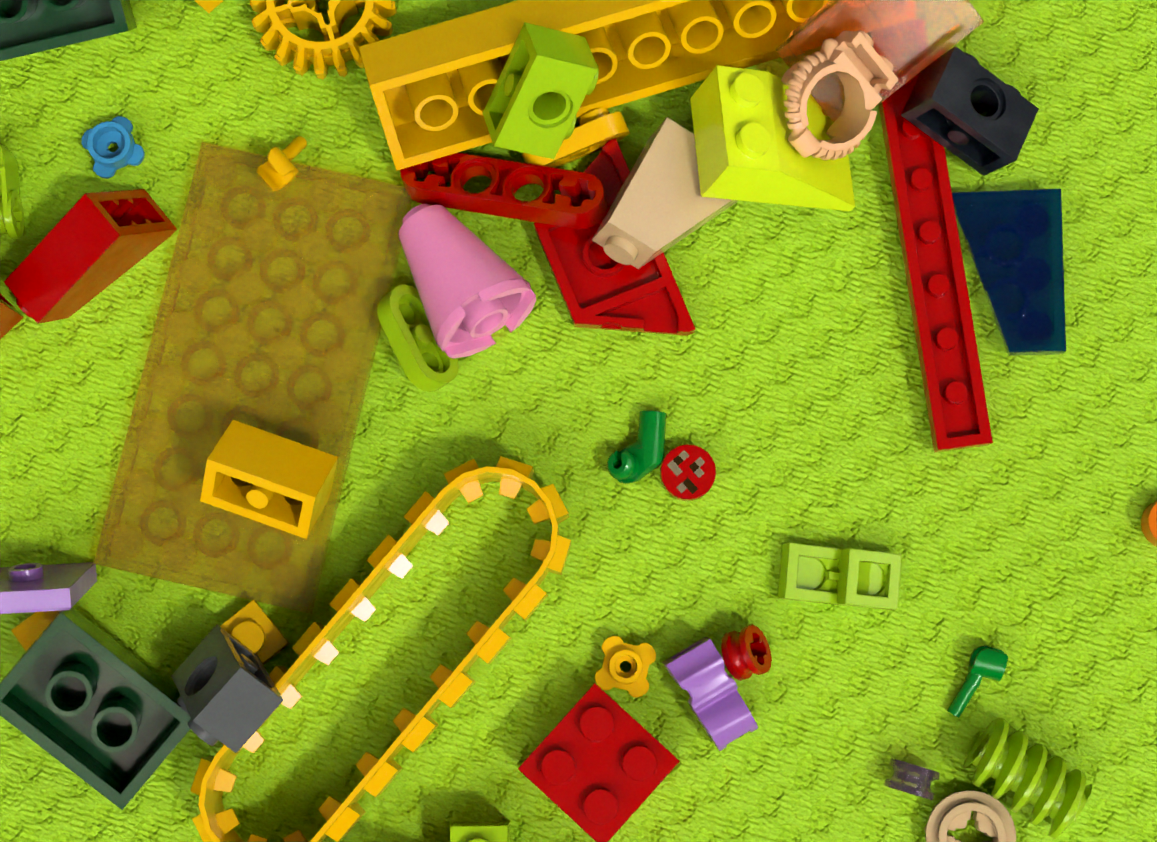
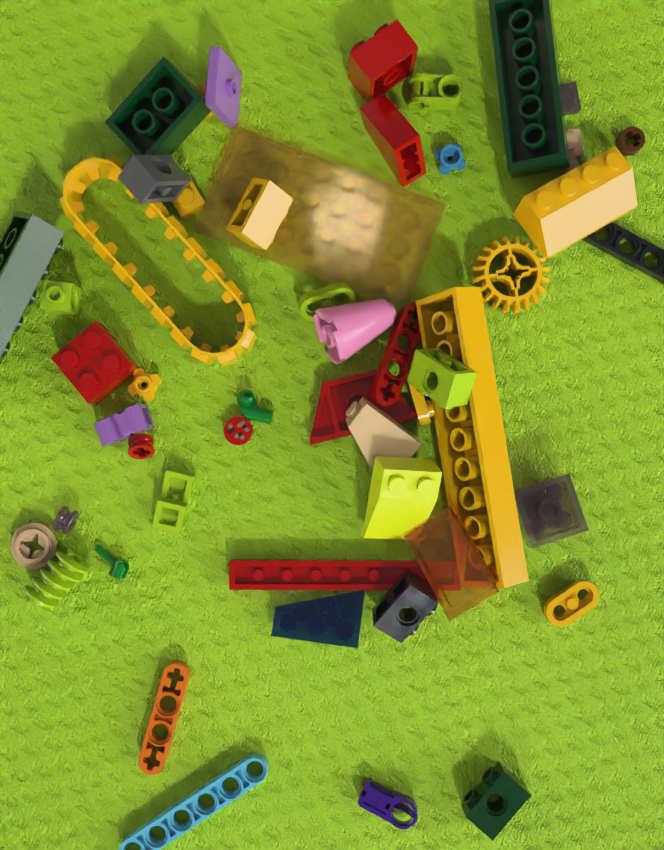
camera: 95 degrees right, 5 degrees up
(279, 169) = (425, 239): yellow hand -> none
(862, 76) = (428, 551): light nougat piece -> none

